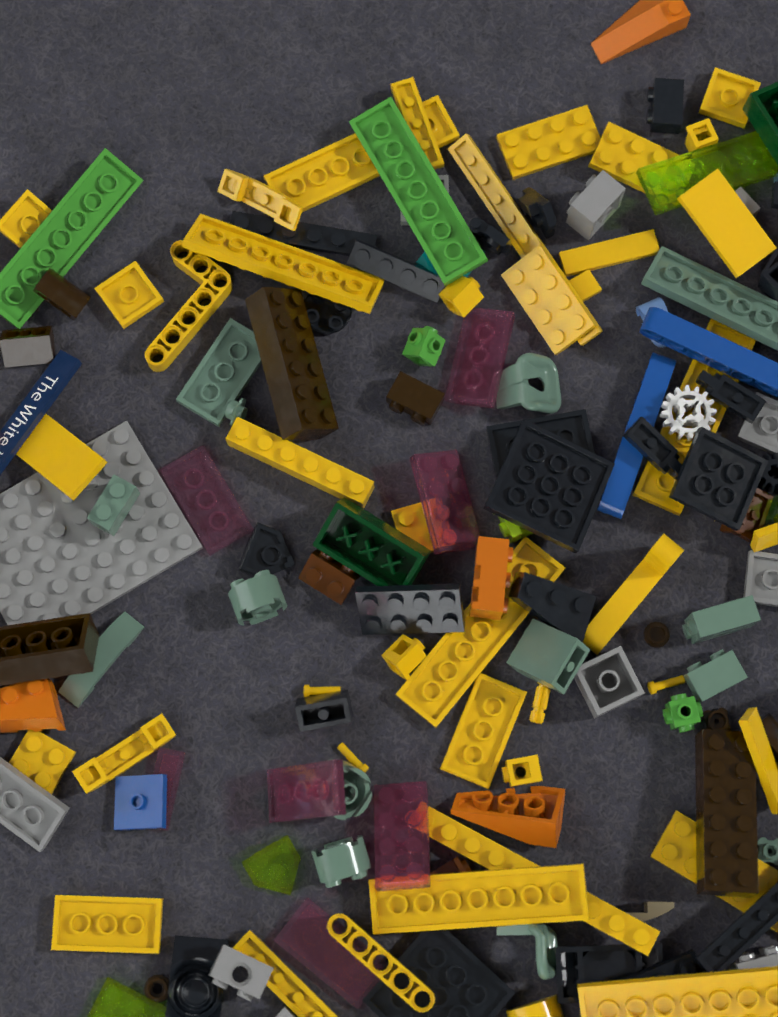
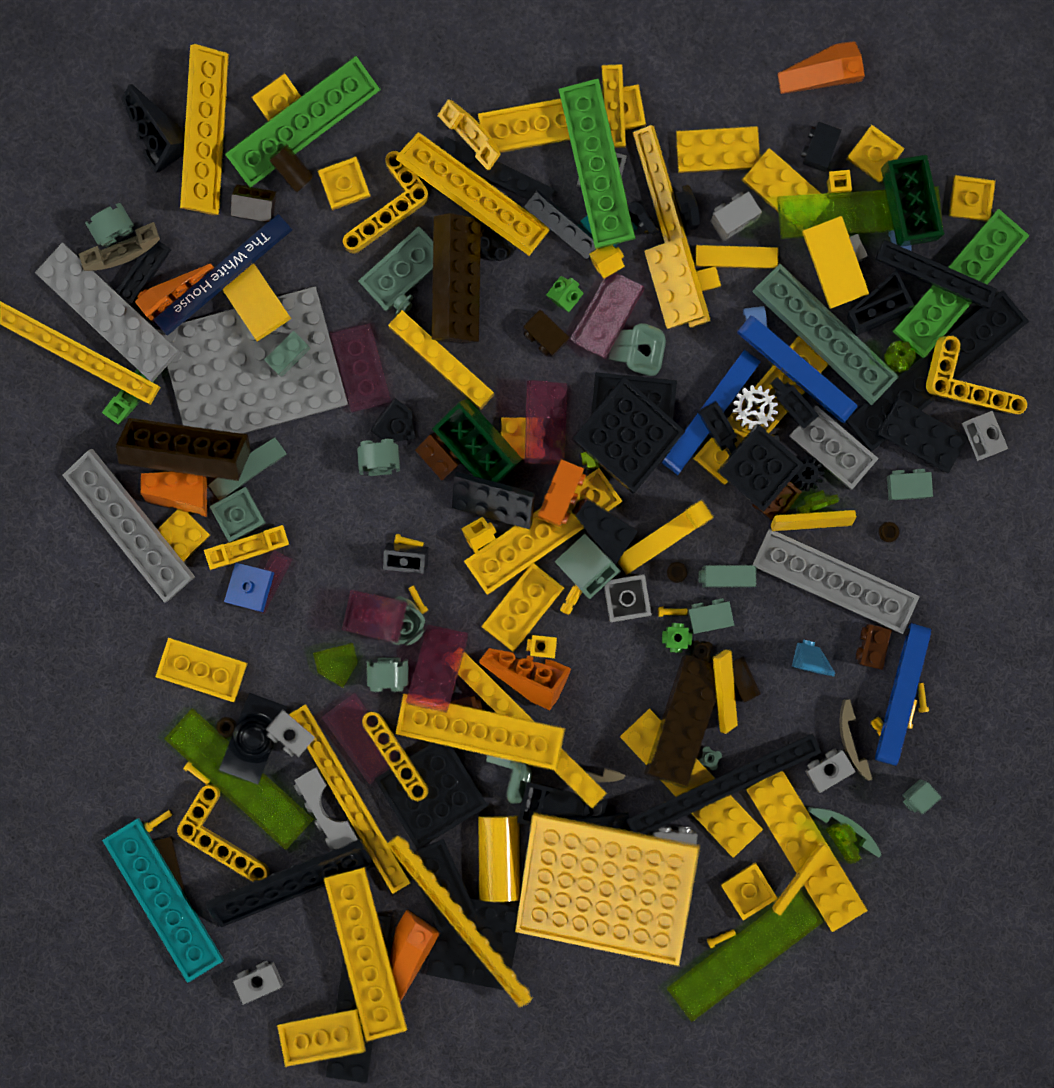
camera: 15 degrees right, 10 degrees up
(103, 717) = (237, 514): none -> sand green plate

